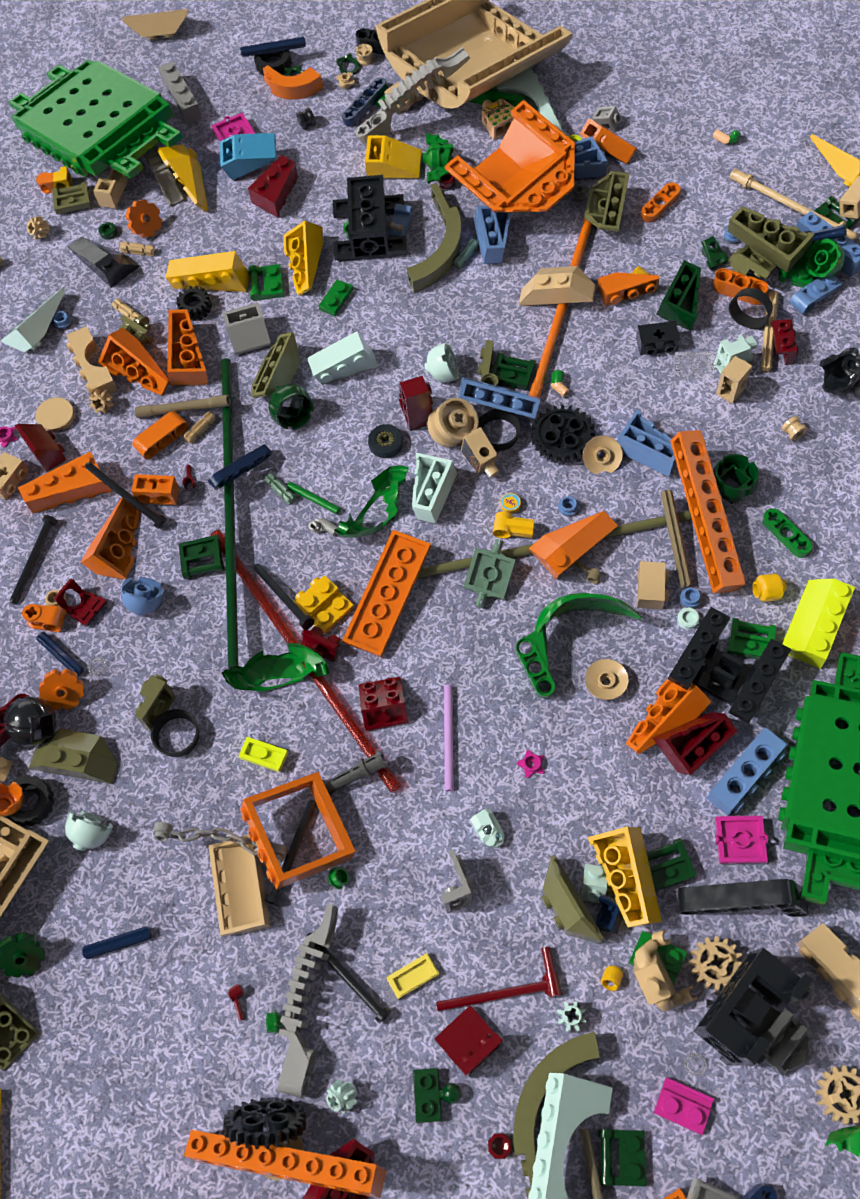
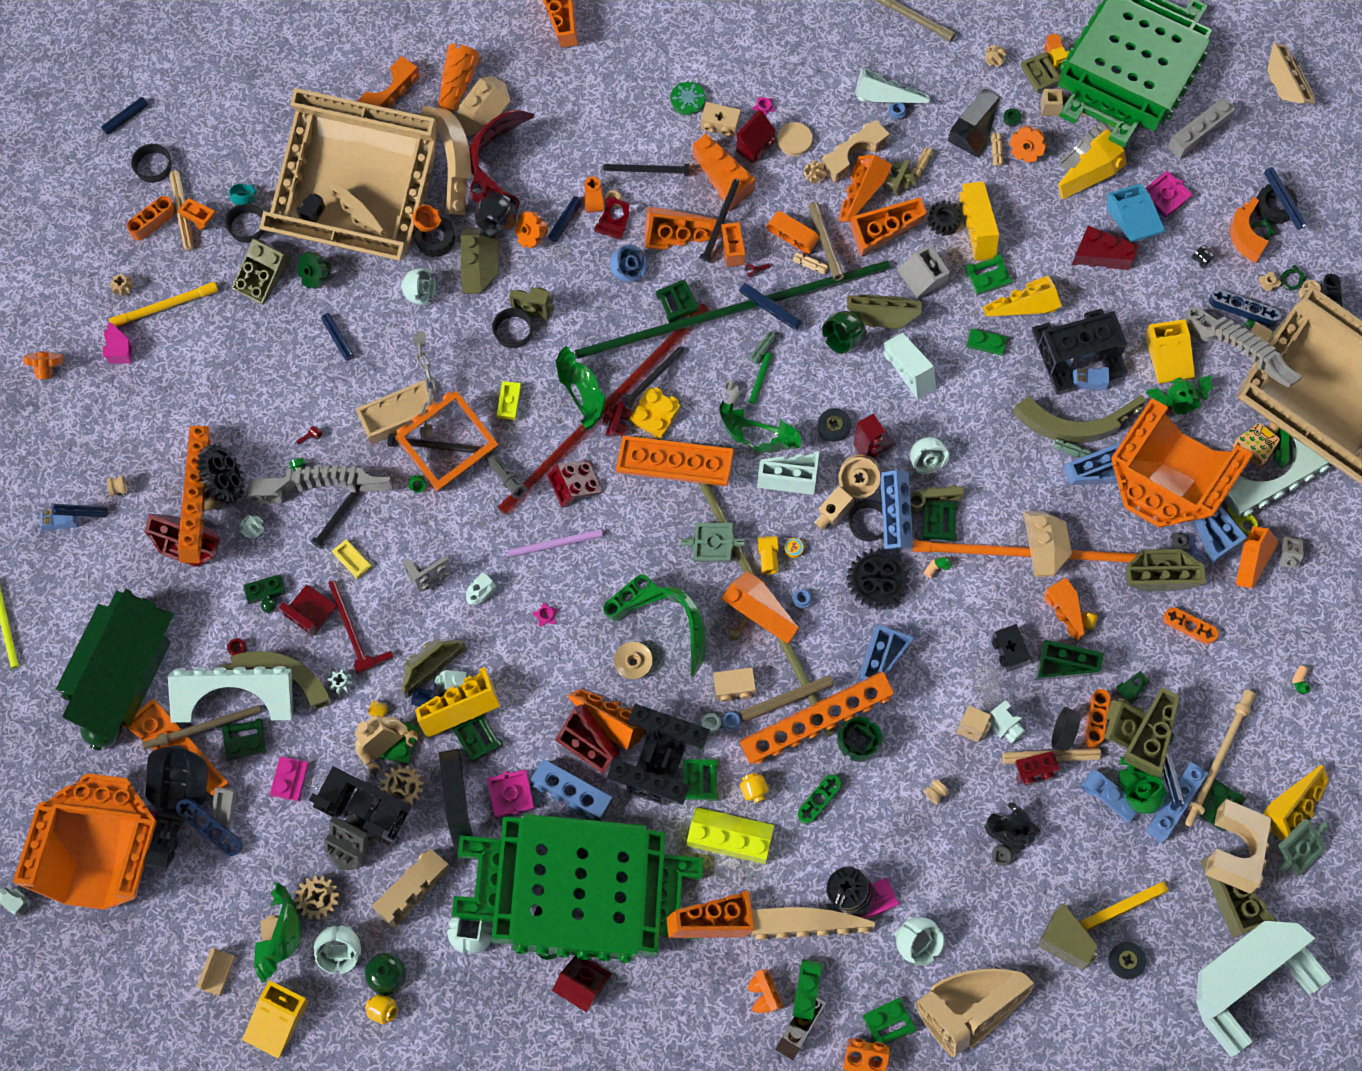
camera: 70 degrees right, 5 degrees up
(612, 456) = (855, 617): tan dish -> none

